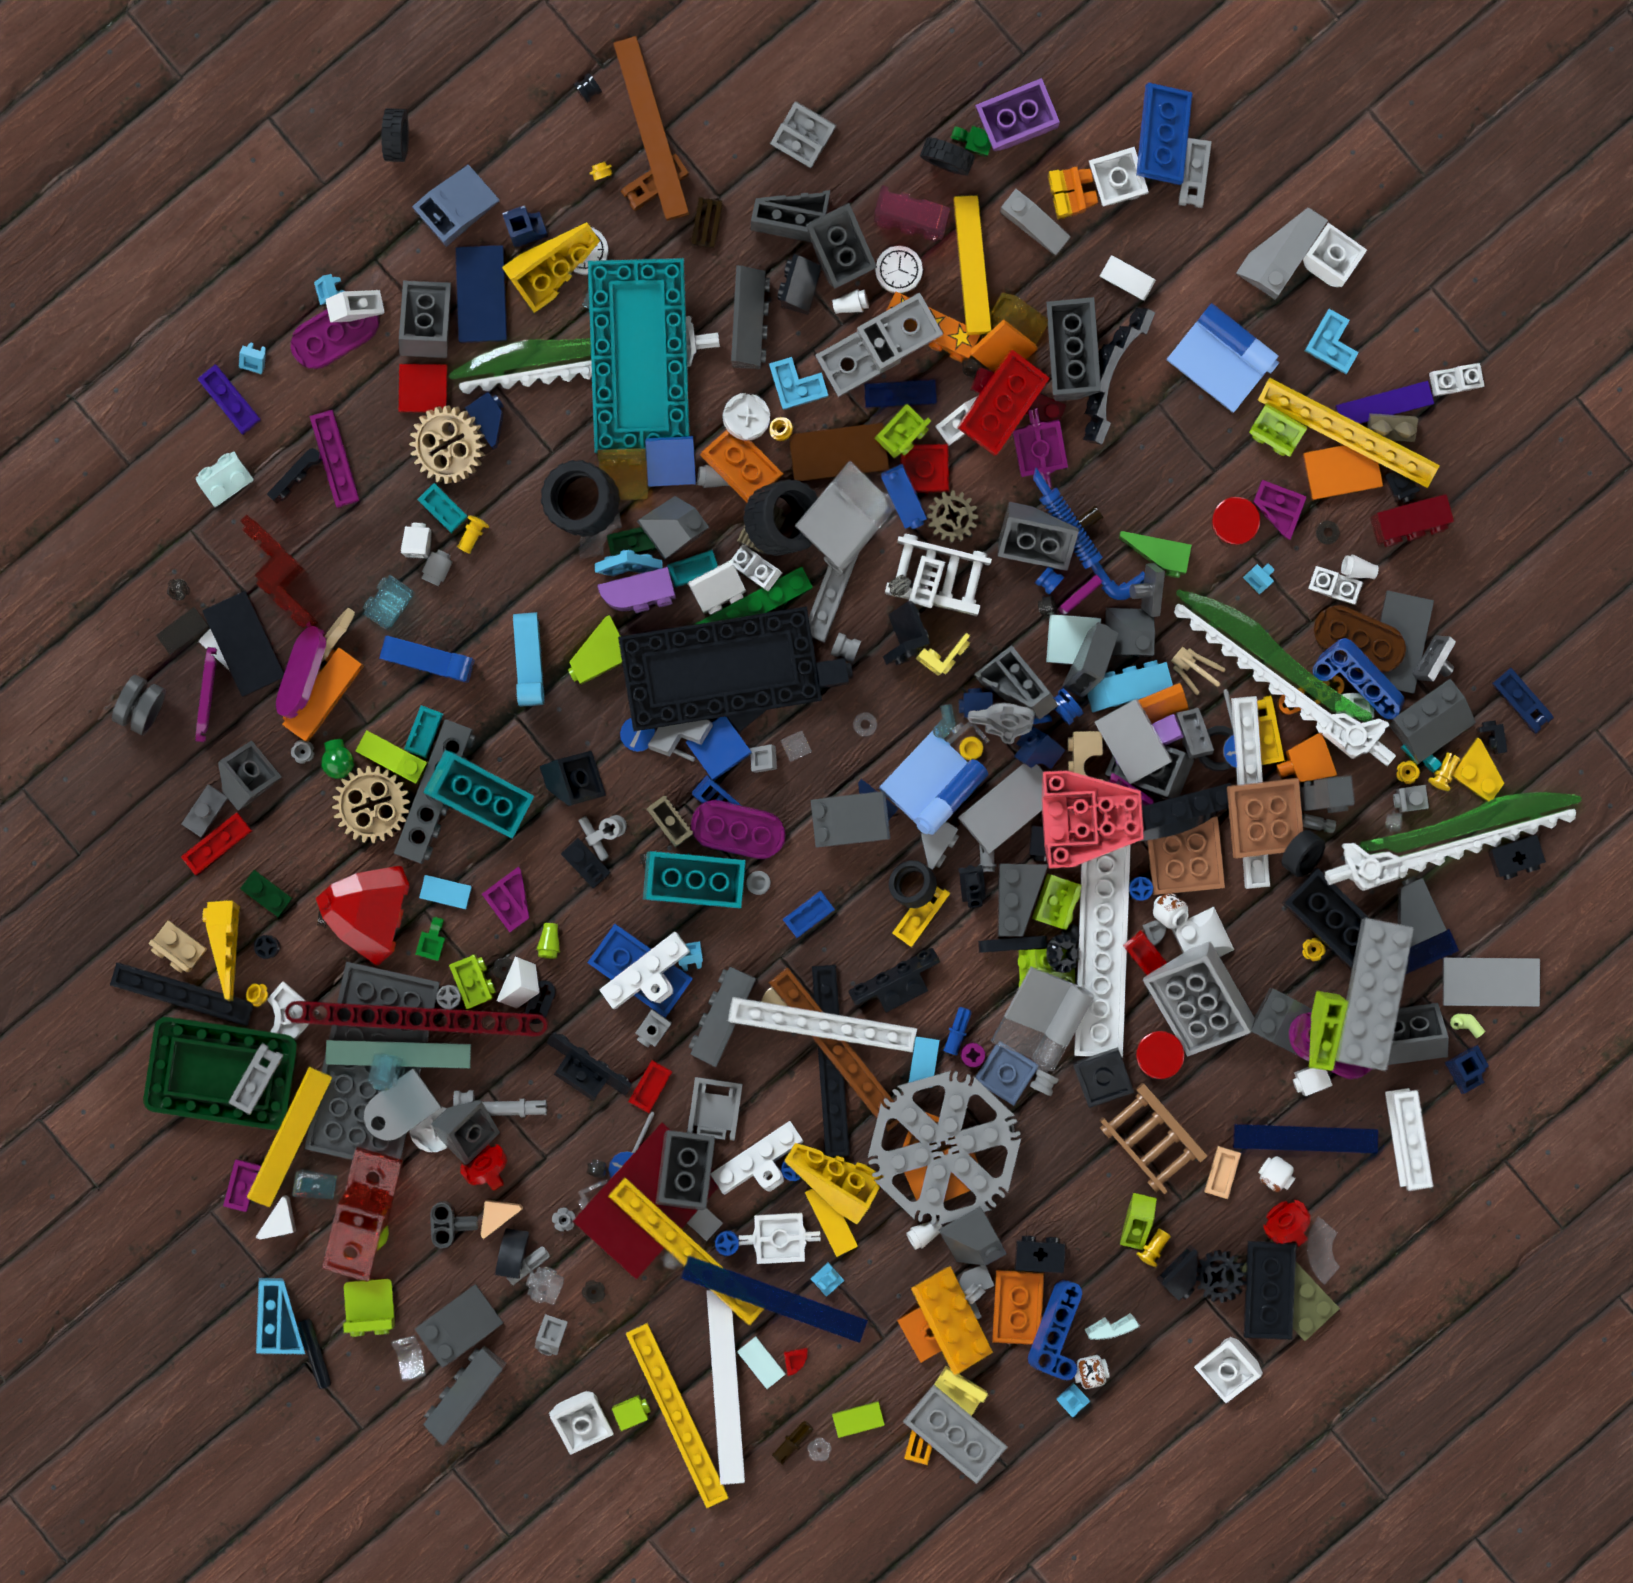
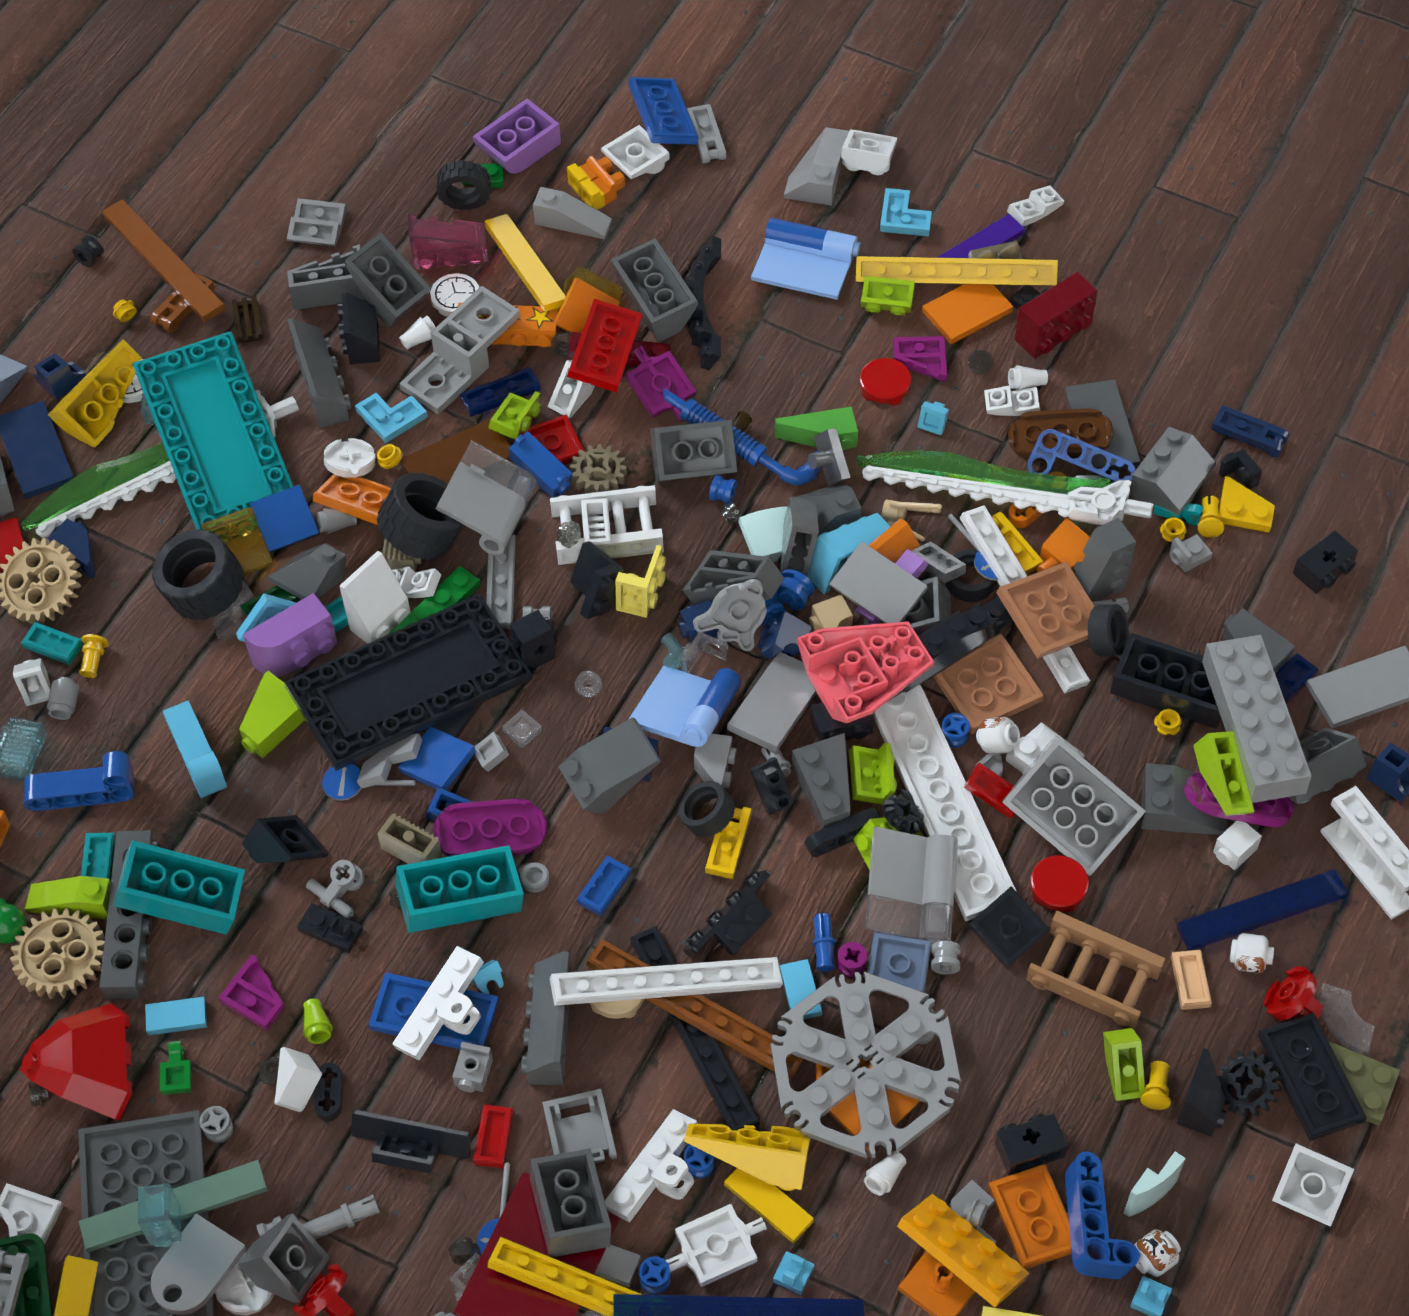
camera: 20 degrees left, 30 degrees down
(405, 1013) = (168, 1149): dark red beam -> none
(472, 981) = (239, 1095): lime bracket -> none
(971, 748) = (710, 665): yellow tile -> none
(973, 1239) = (944, 1150): dark grey slope -> none
(1080, 595) = (760, 483): magenta tile -> none
(1127, 278) = (682, 226): white slope -> none
(1383, 867) = (1191, 604): piece -> none
(1394, 821) = (1185, 577): clear plate -> none
(1435, 660) = (1144, 423): flat silver tile -> none
(1467, 1021) = (1368, 732): yellowish green arm -> none

